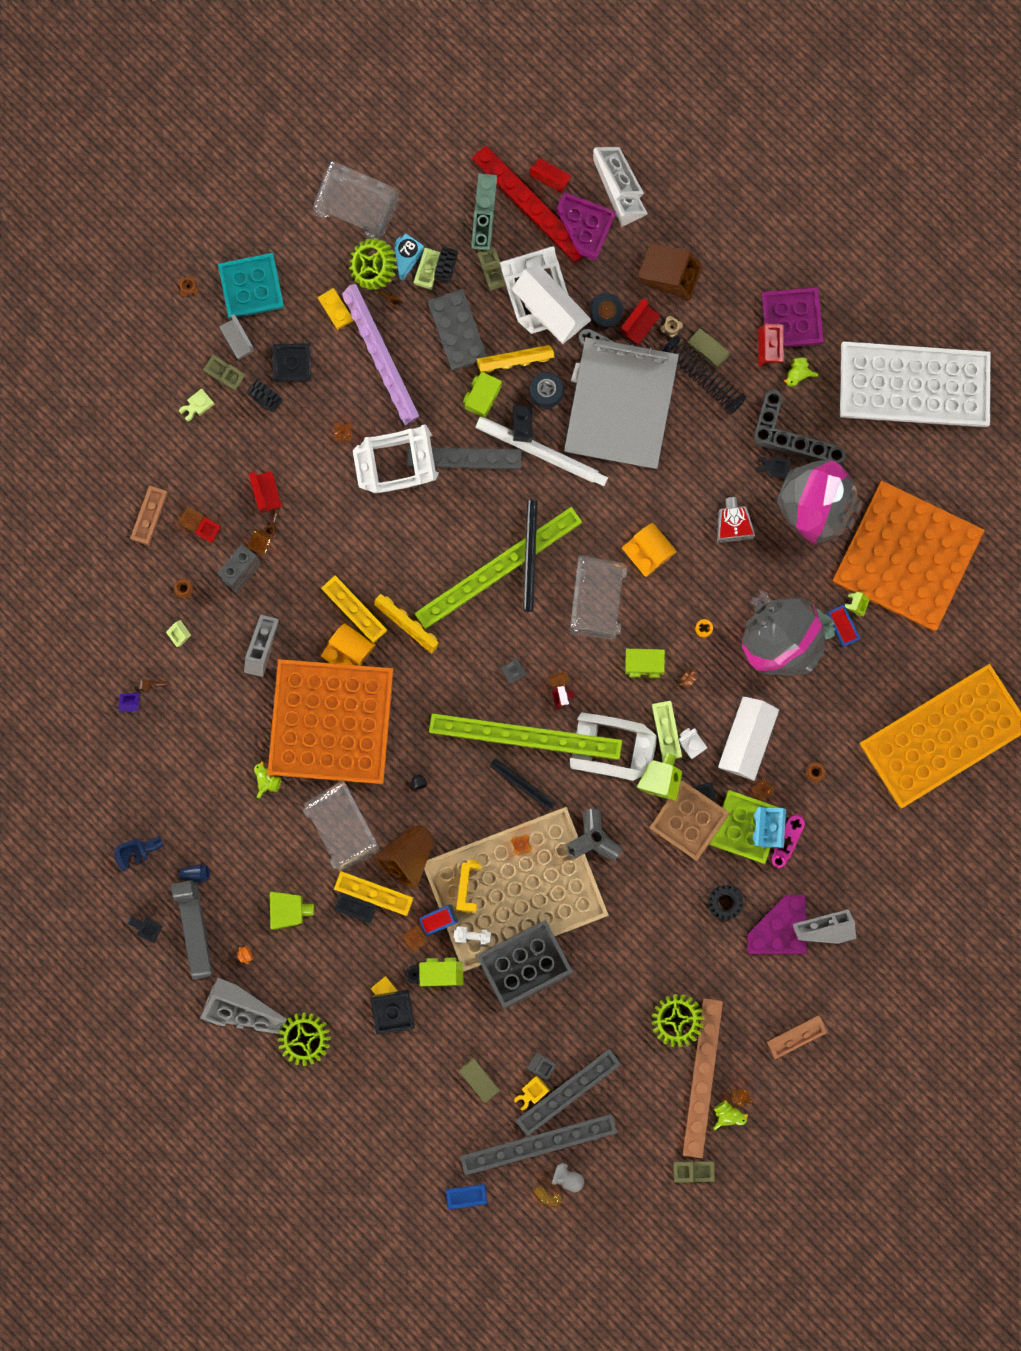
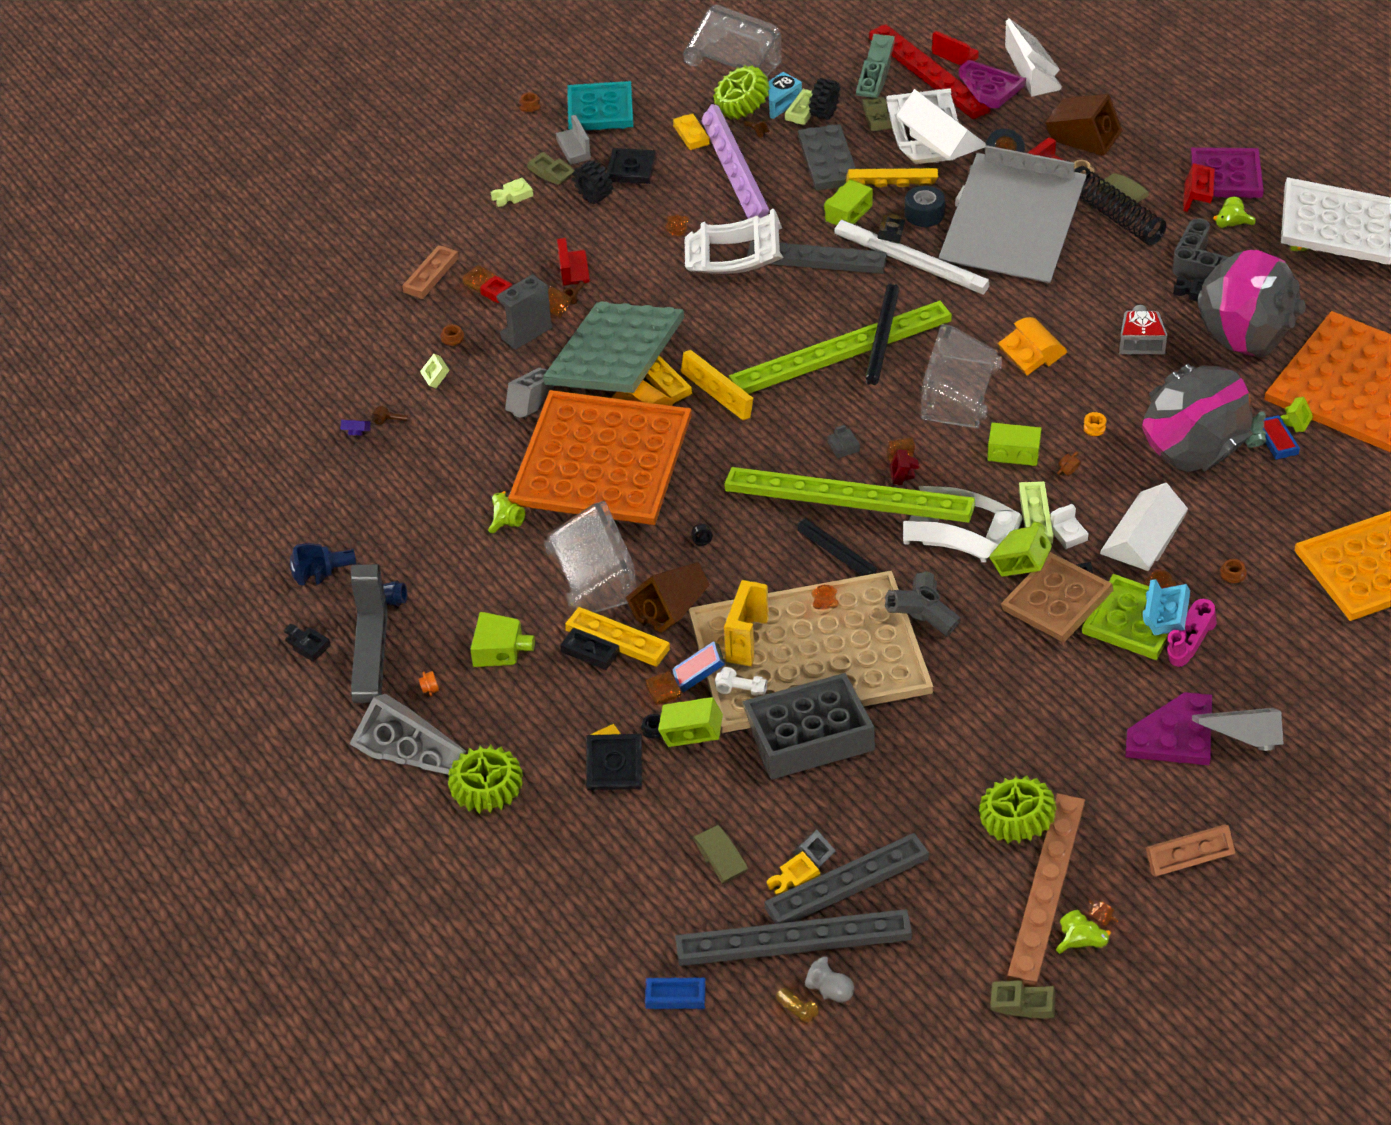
camera: 10 degrees right, 35 degrees down
(319, 596) = (614, 347): none -> sand green plate
(725, 914) = (1096, 703): black tyre -> none

